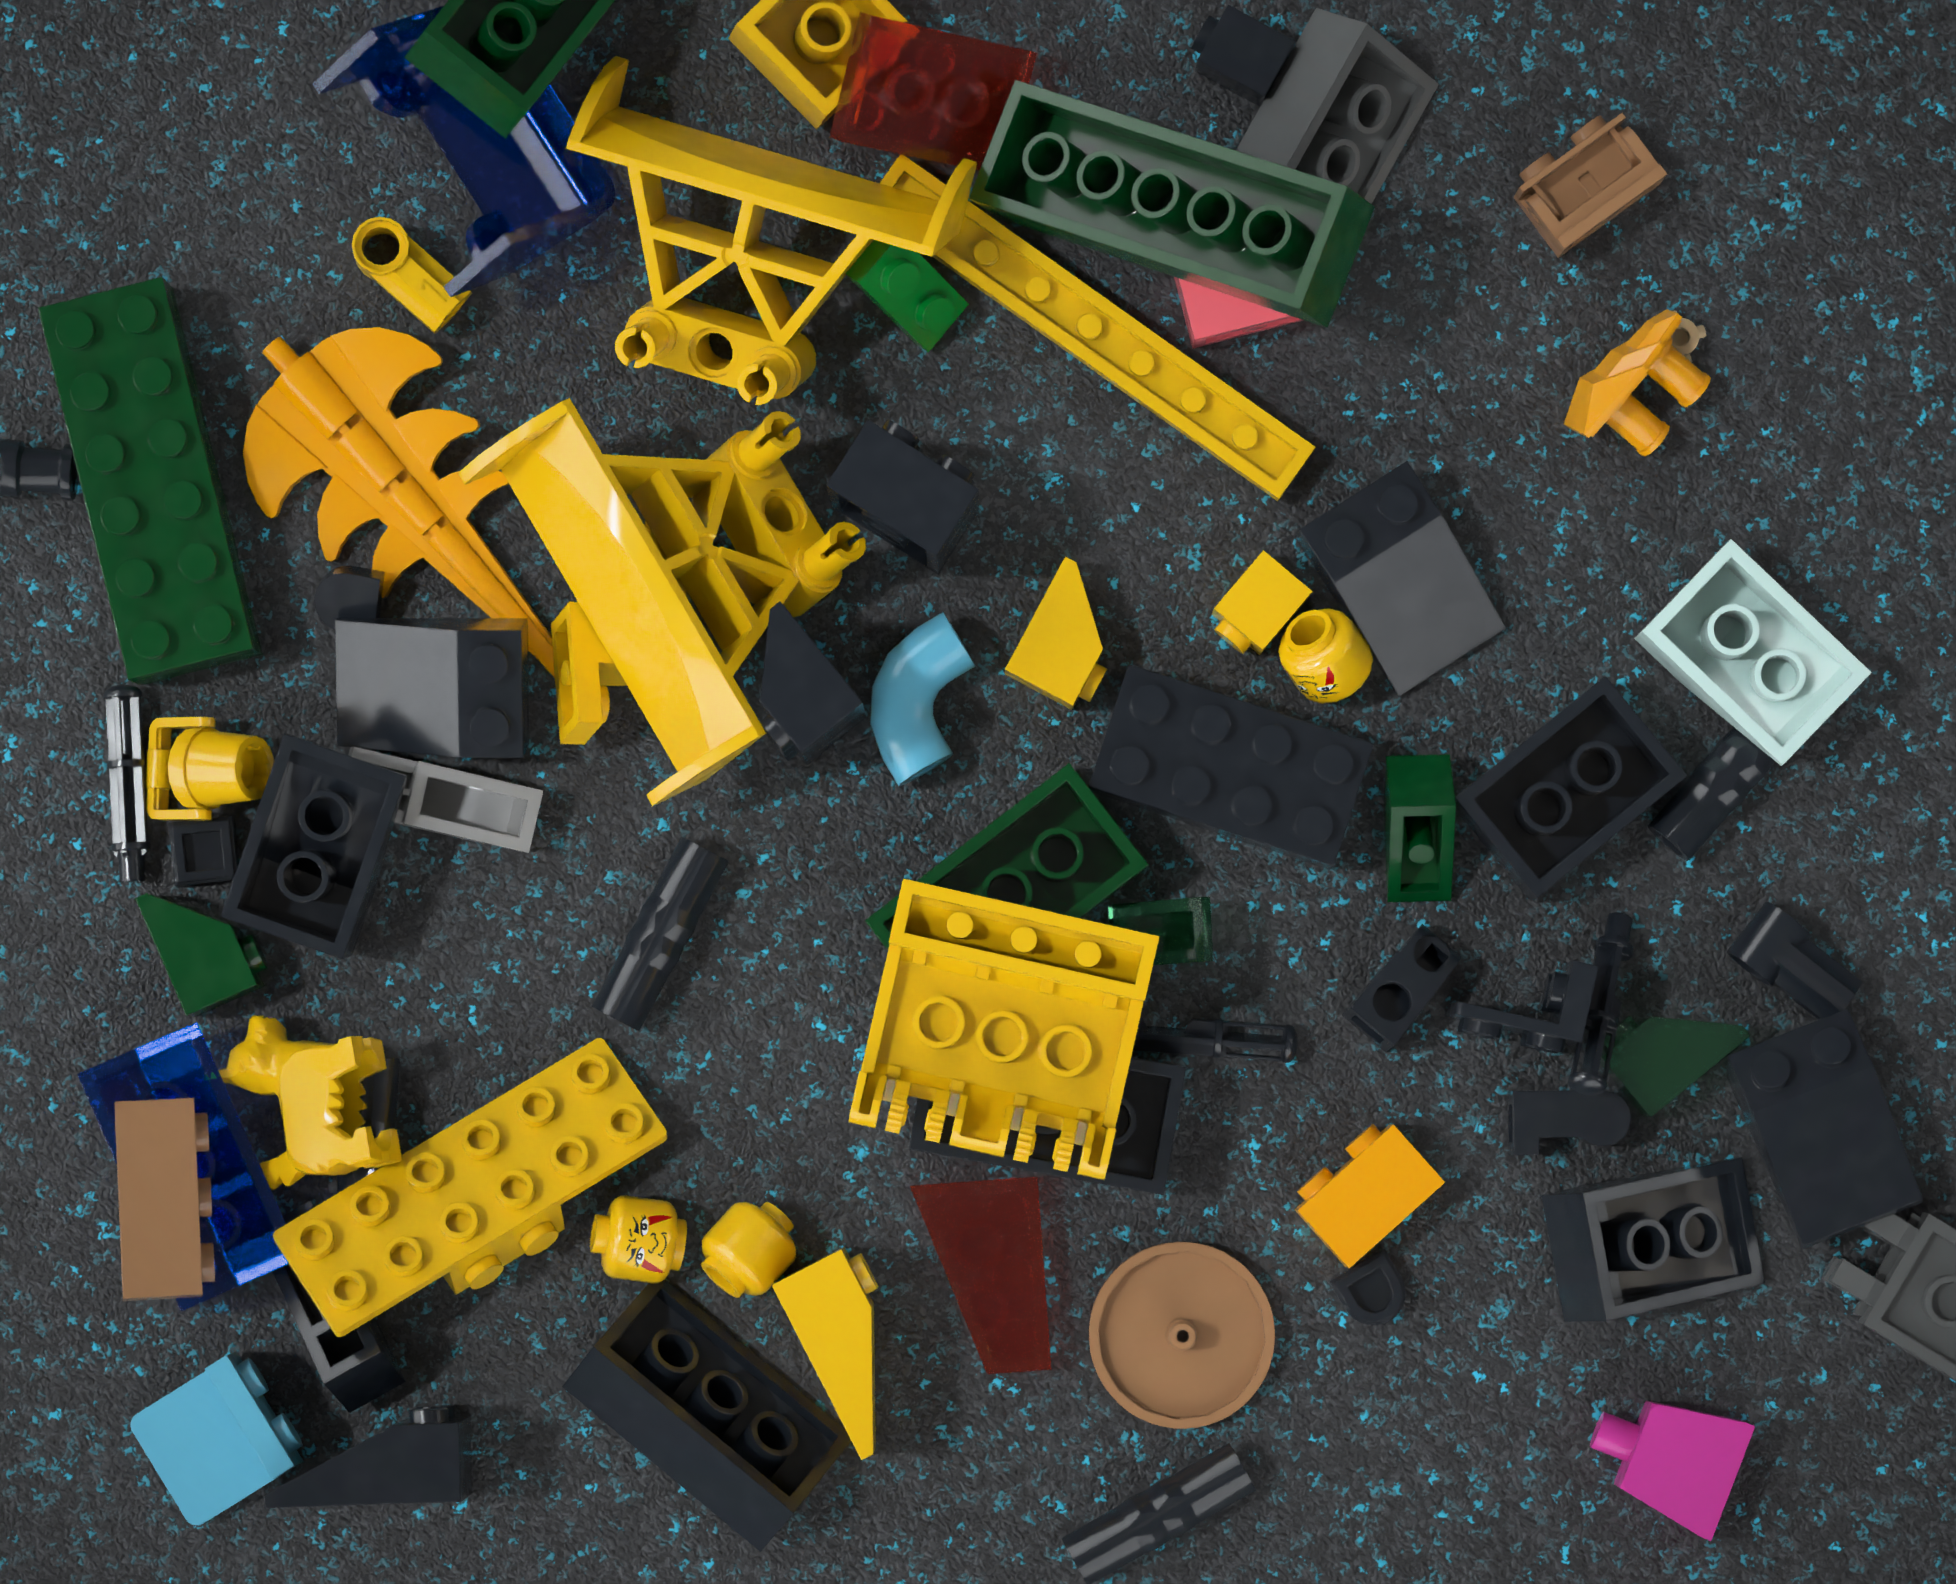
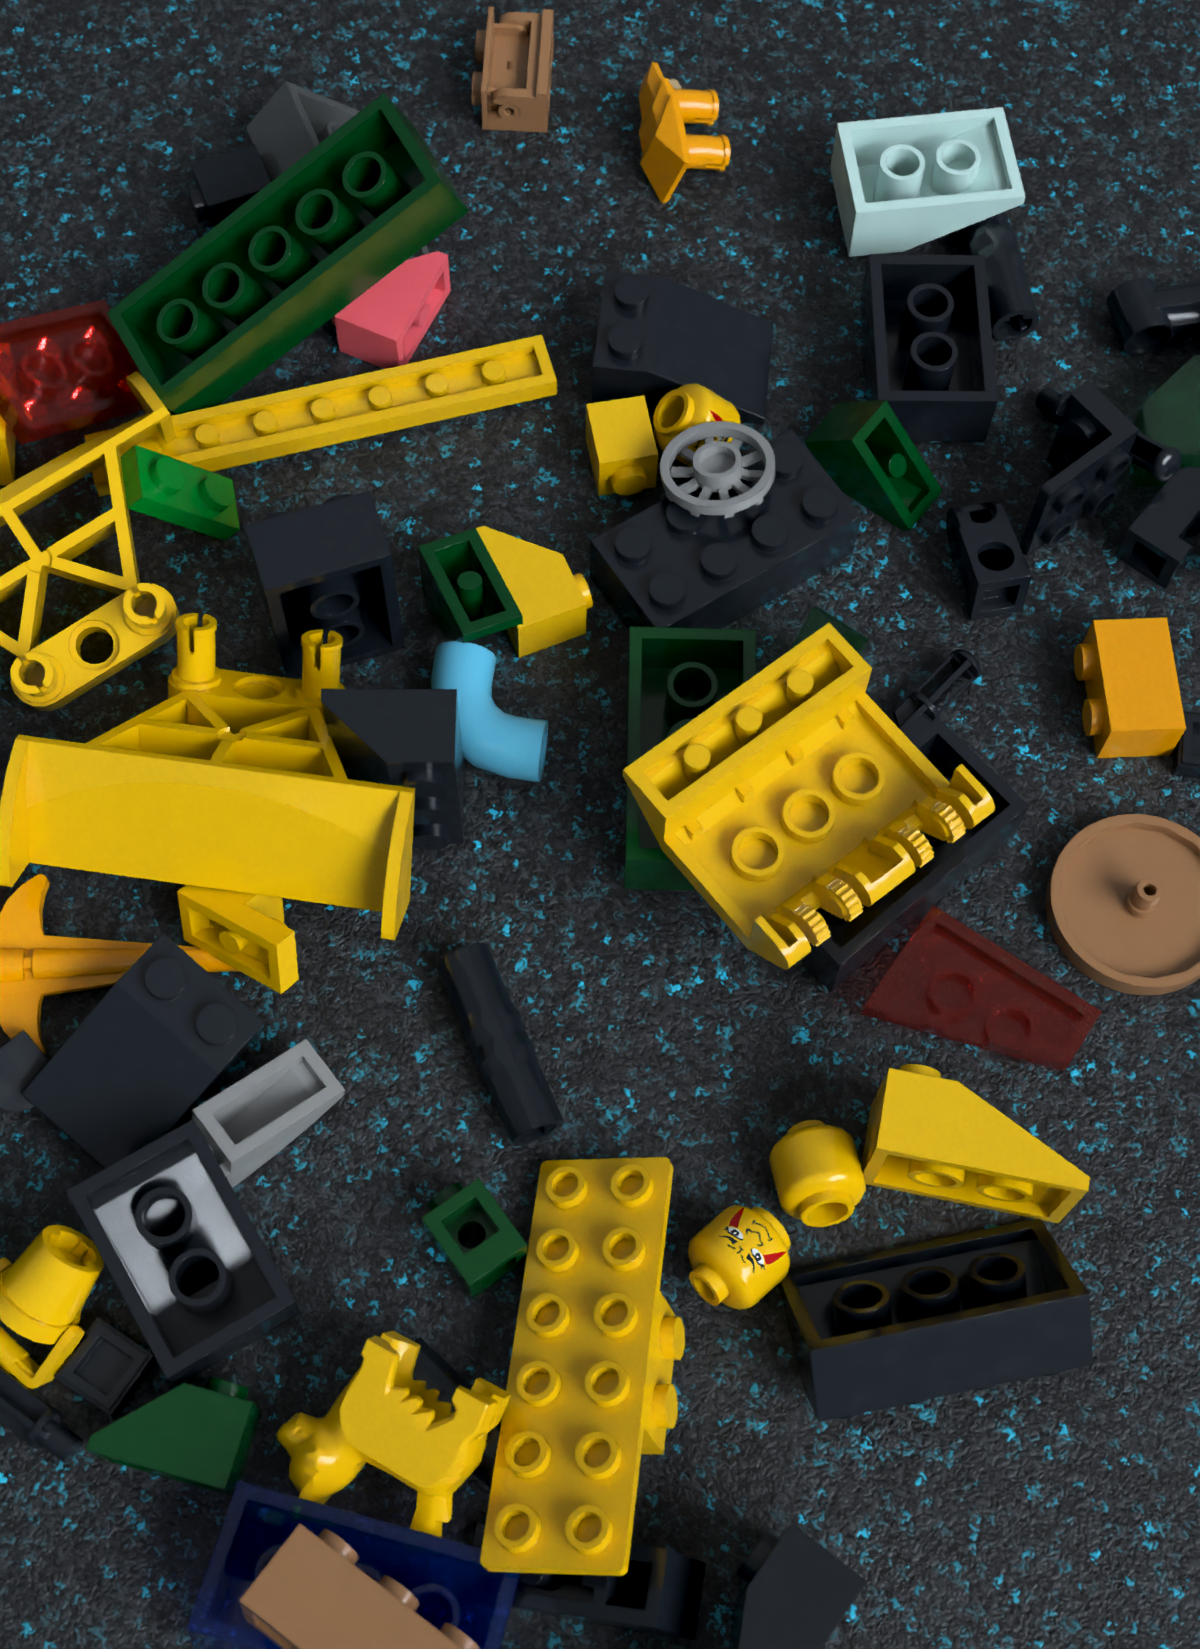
camera: 55 degrees left, 20 degrees down
(479, 1050) = (474, 1207): none -> dark green brick
(1002, 605) = (465, 588): none -> dark green slope
(1271, 719) = (717, 469): none -> light grey wheel

